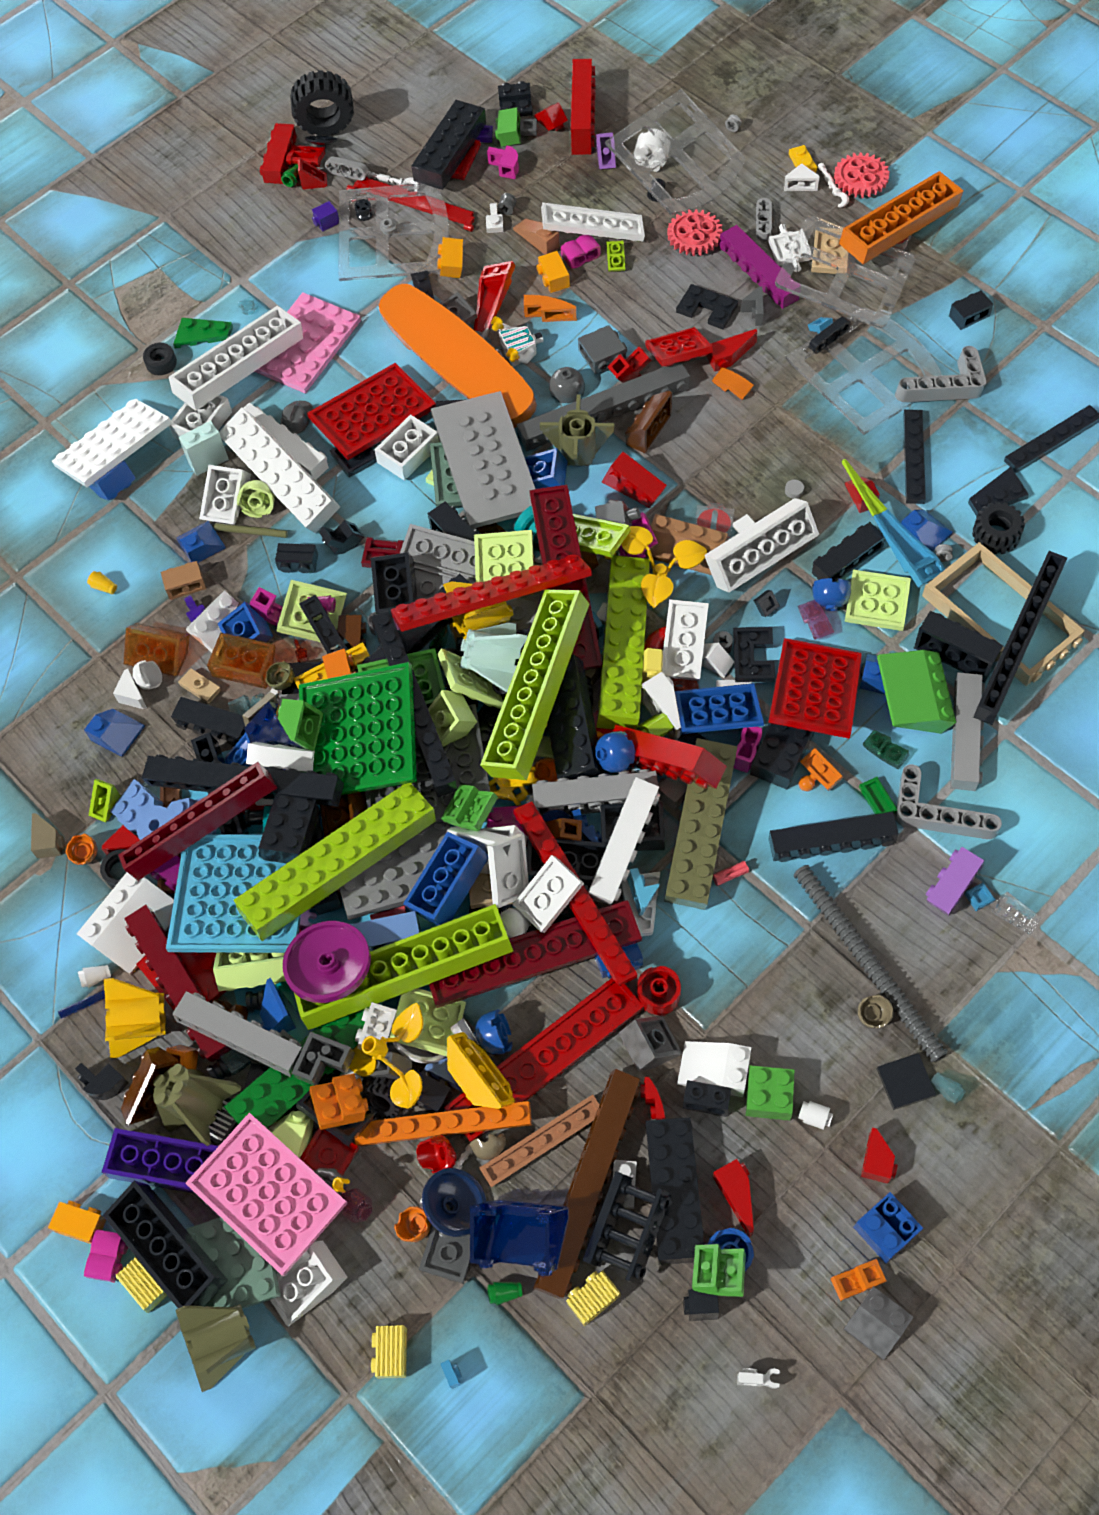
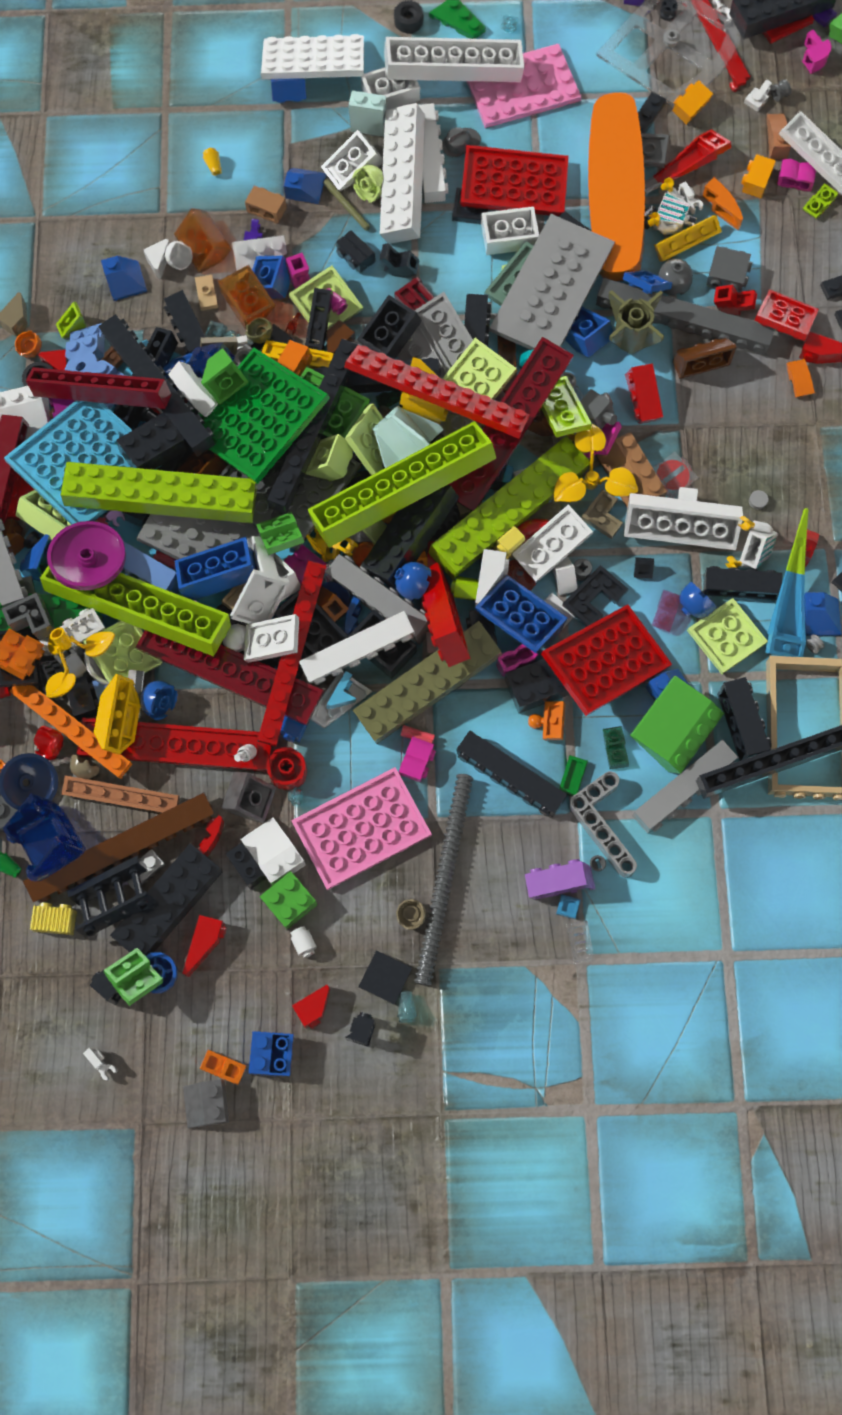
camera: 40 degrees right, 10 degrees up
(517, 321) = (688, 194): none -> white plate
(547, 351) = (688, 238): none -> yellow plate
(556, 400) = (647, 281): none -> blue plate
(614, 1007) = (246, 753): none -> white cylinder
(686, 1007) = (295, 796): none -> clear light blue plate
(690, 591) = (598, 514): none -> dark tan plate
(751, 891) = (416, 759): none -> dark pink brick
(764, 984) = (361, 828): none -> bright pink plate
(833, 518) = (758, 544): none -> white torso
(937, 1135) = (362, 1029): none -> black window
(968, 839) = (594, 865): none -> dark grey hinge

